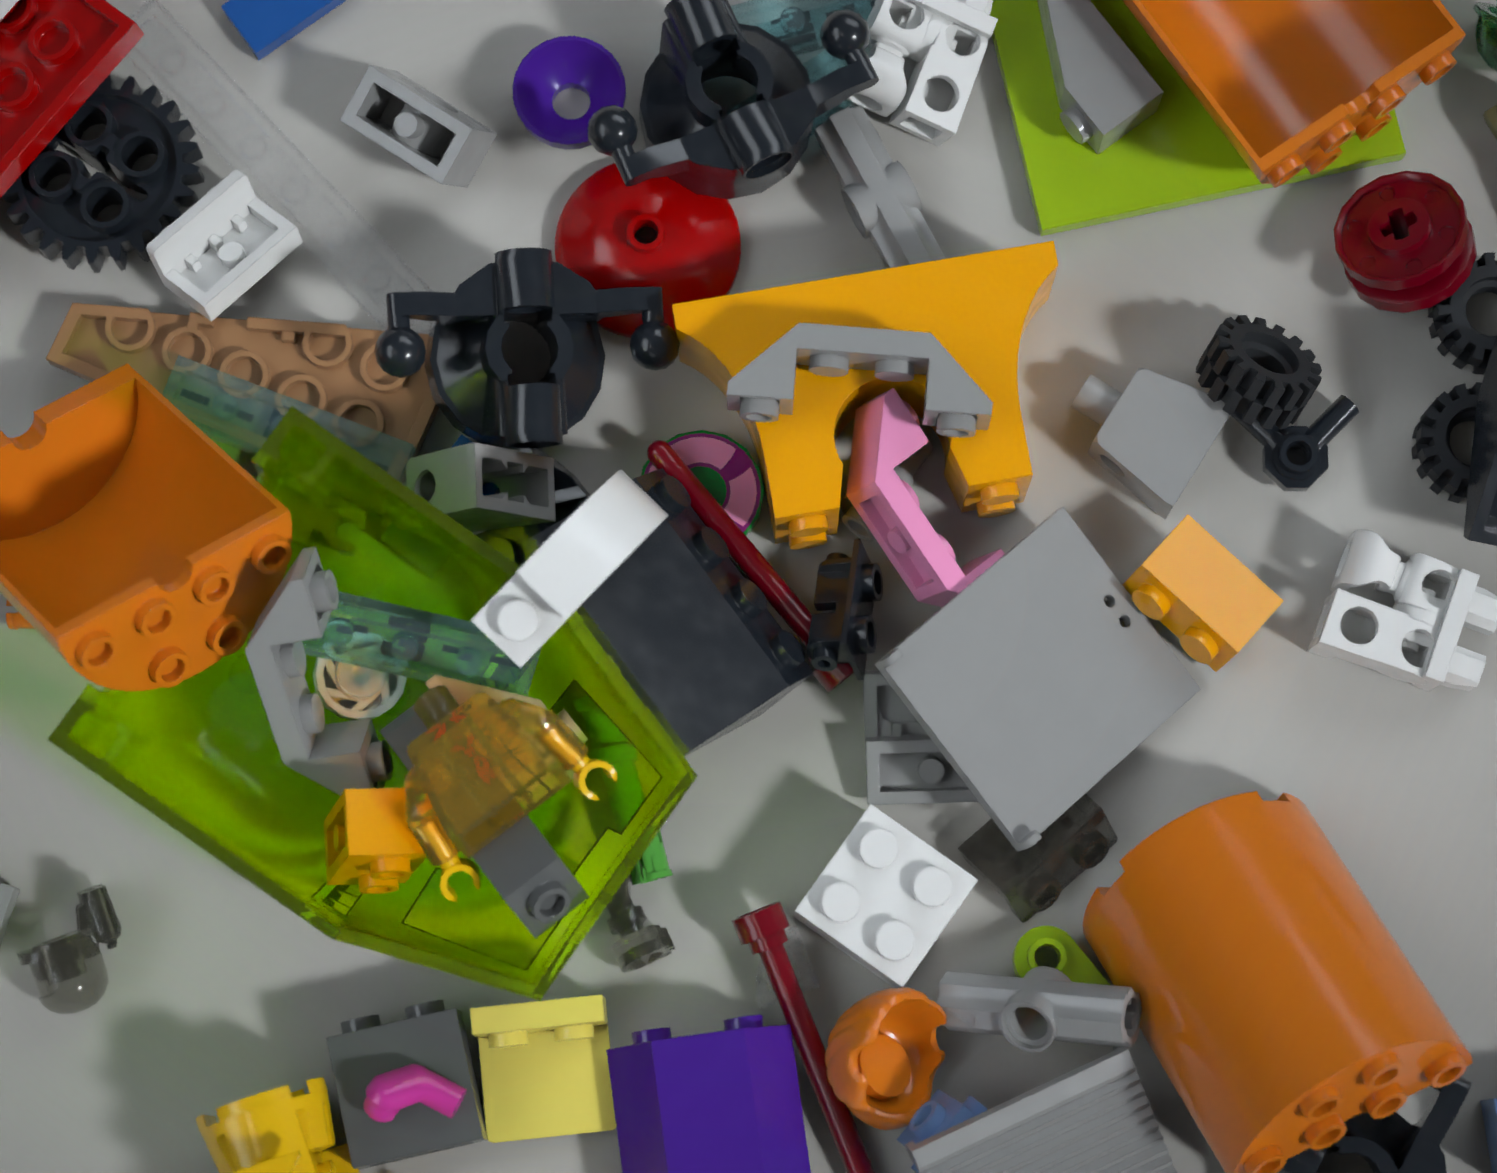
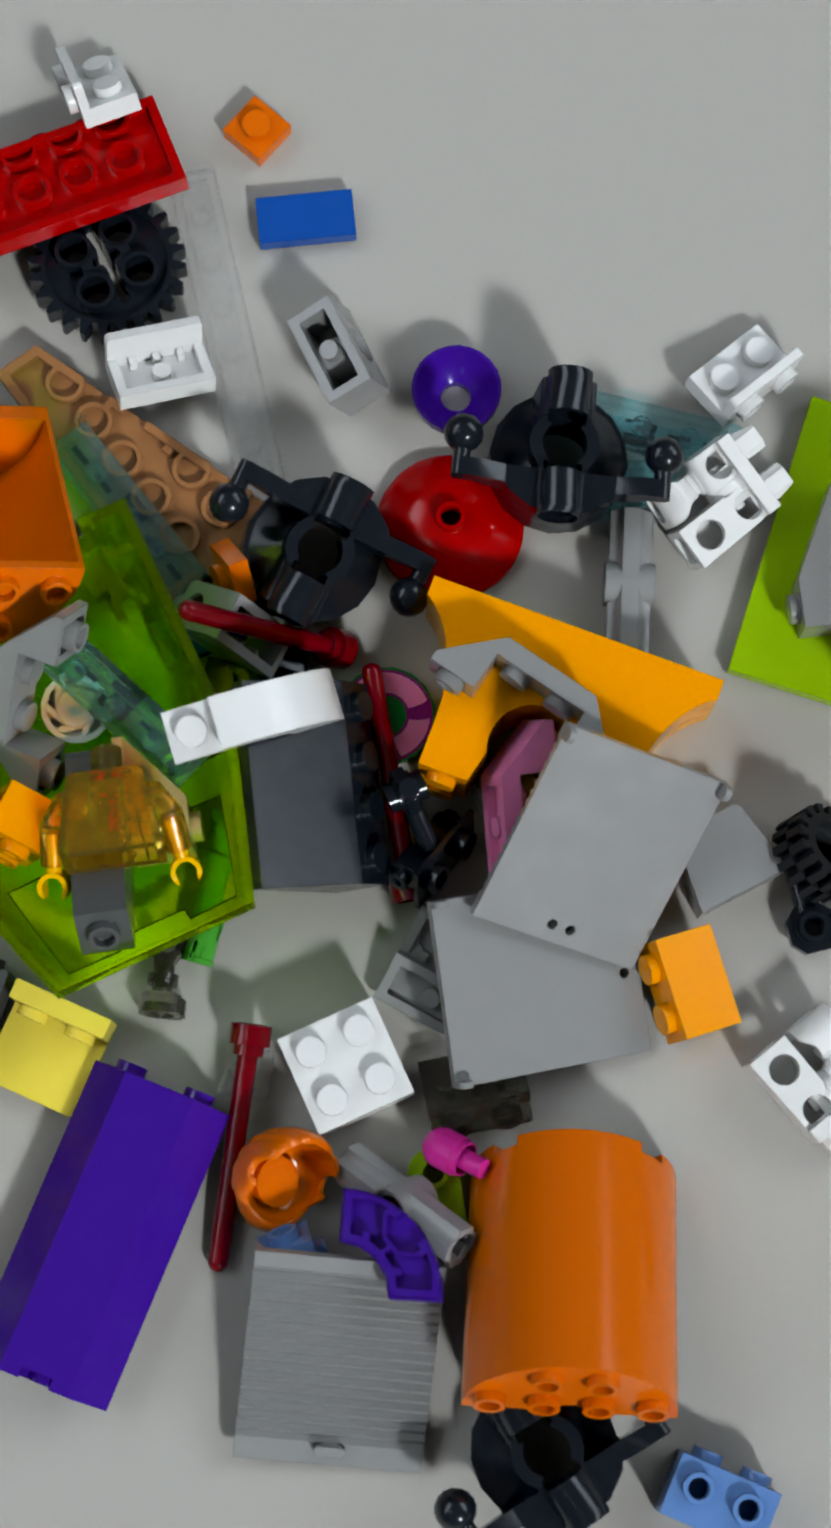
camera: 25 degrees right, 0 degrees up
(438, 424) = (231, 569): none -> orange plate
(597, 450) = (331, 646): none -> dark red piece
(777, 561) = (406, 793): none -> black piece
(1026, 495) = (599, 846): none -> light grey door
(1057, 1054) = (395, 1244): none -> dark purple tile
(1059, 922) = (453, 1153): none -> dark pink cylinder

